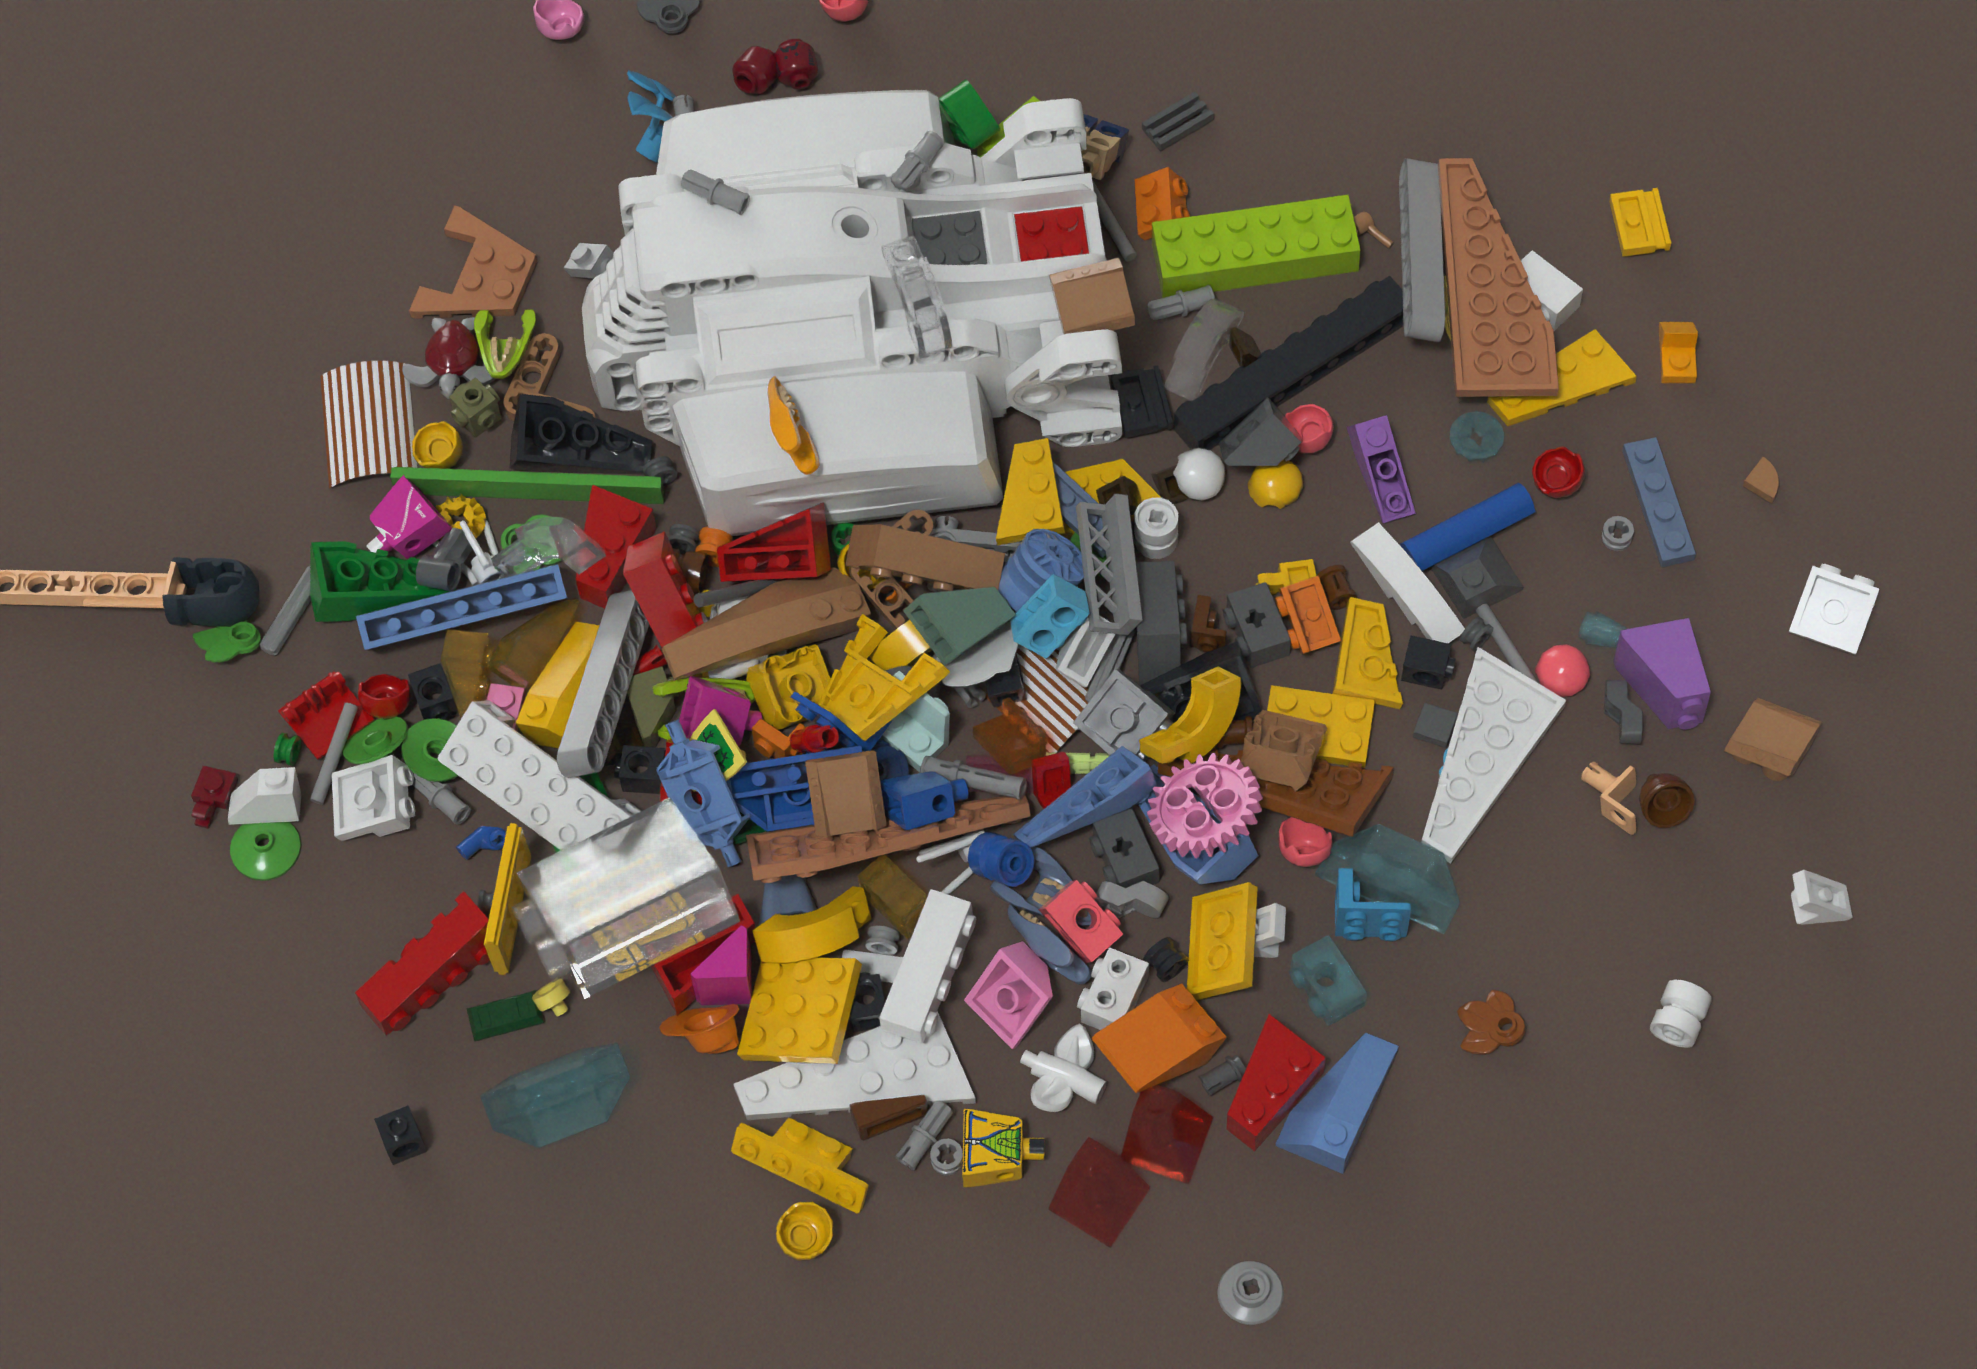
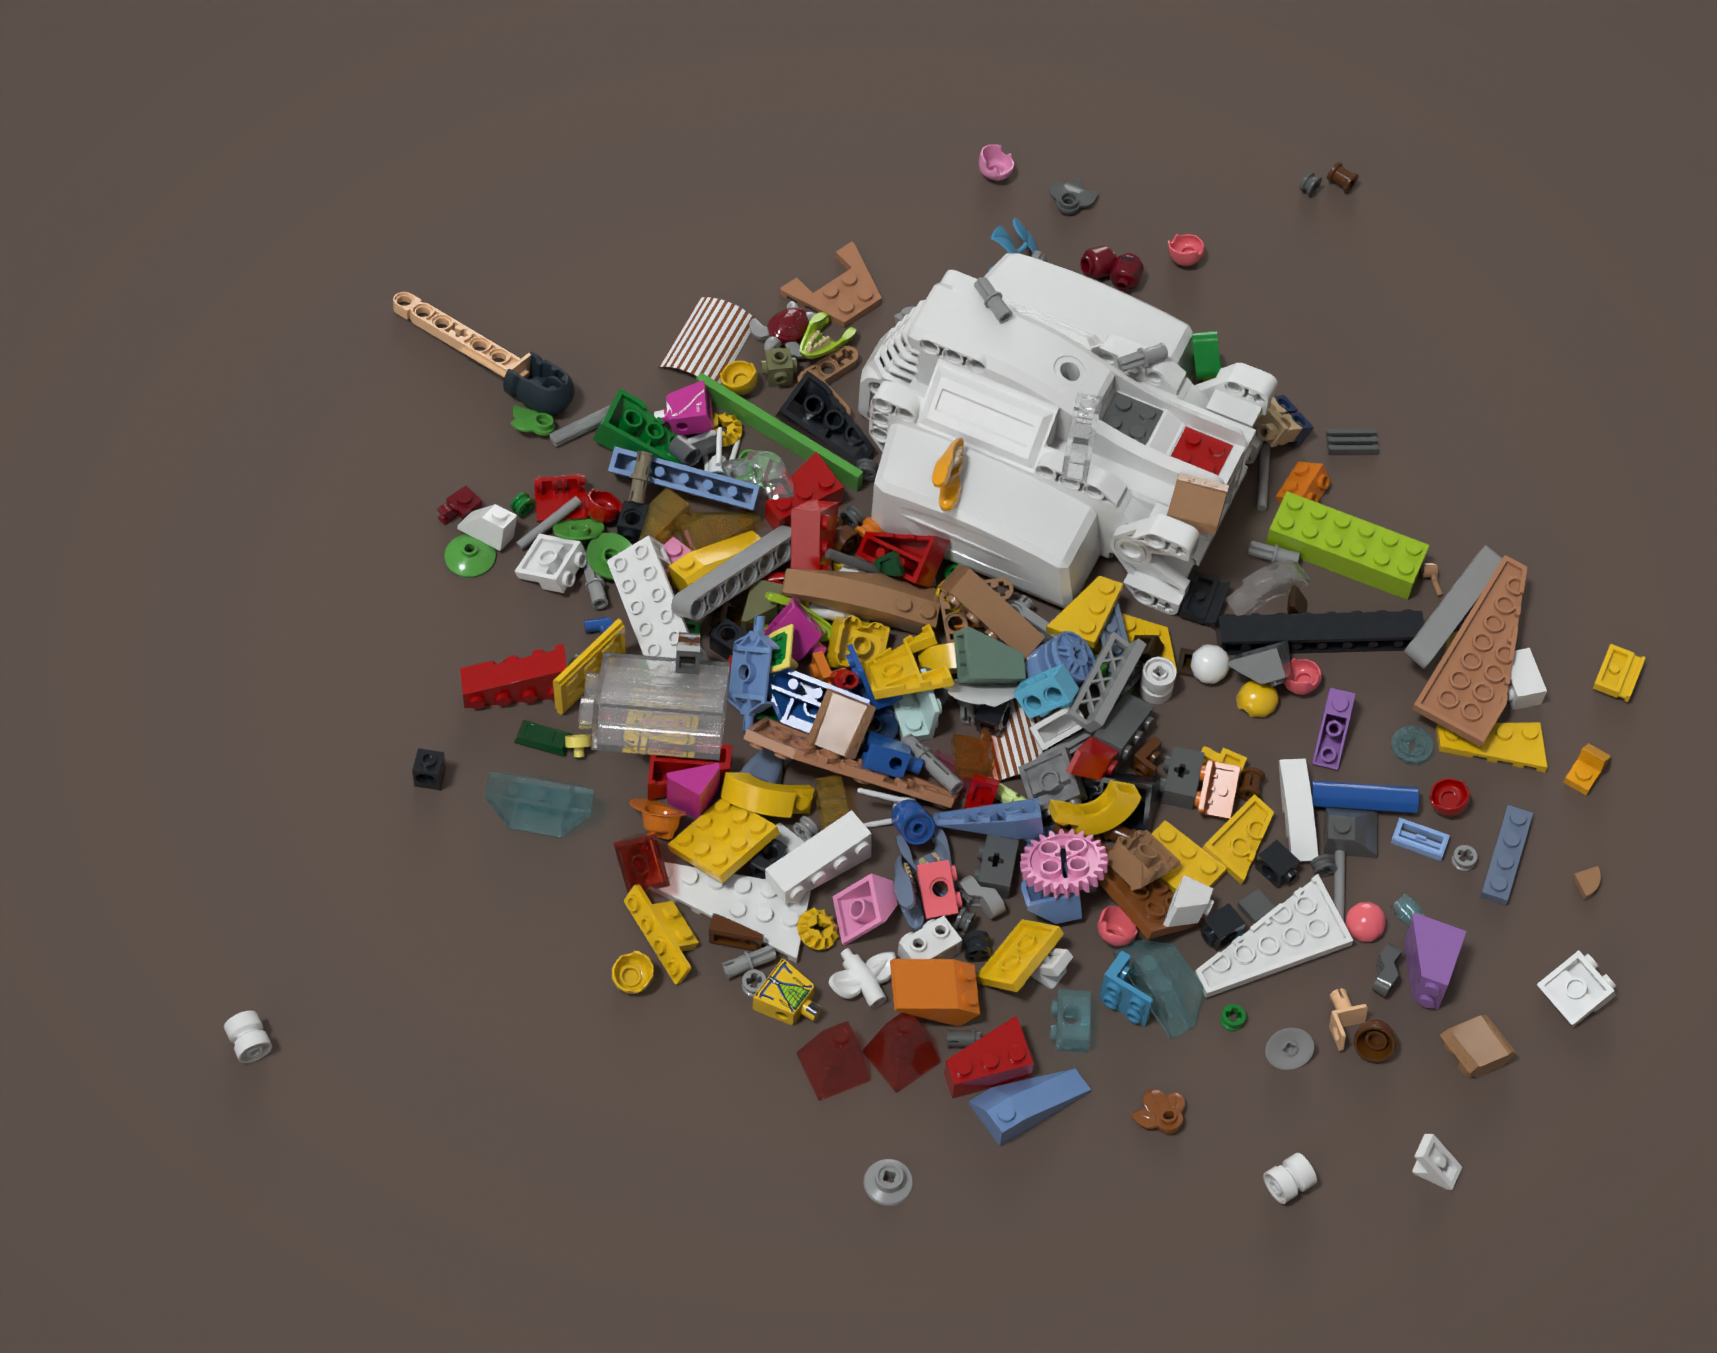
camera: 25 degrees right, 5 degrees down
(411, 636) = (640, 477): none -> dark tan pin
(616, 812) = (688, 651): none -> dark grey leg
(727, 1093) = (641, 862): none -> clear red slope
(773, 570) = (890, 564): none -> dark green tile
(980, 1062) = (812, 937): none -> yellow gear
(1132, 937) = (965, 920): none -> dark grey bush
(1158, 665) = (1093, 760): none -> red slope
(1366, 767) = (1189, 903): none -> white slope
(1416, 771) = (1222, 927): none -> black brick
(1489, 877) = (1229, 1025): none -> green bush
(1562, 544) = (1419, 843): none -> light blue tile
(1581, 865) = (1293, 1056): none -> light grey piece

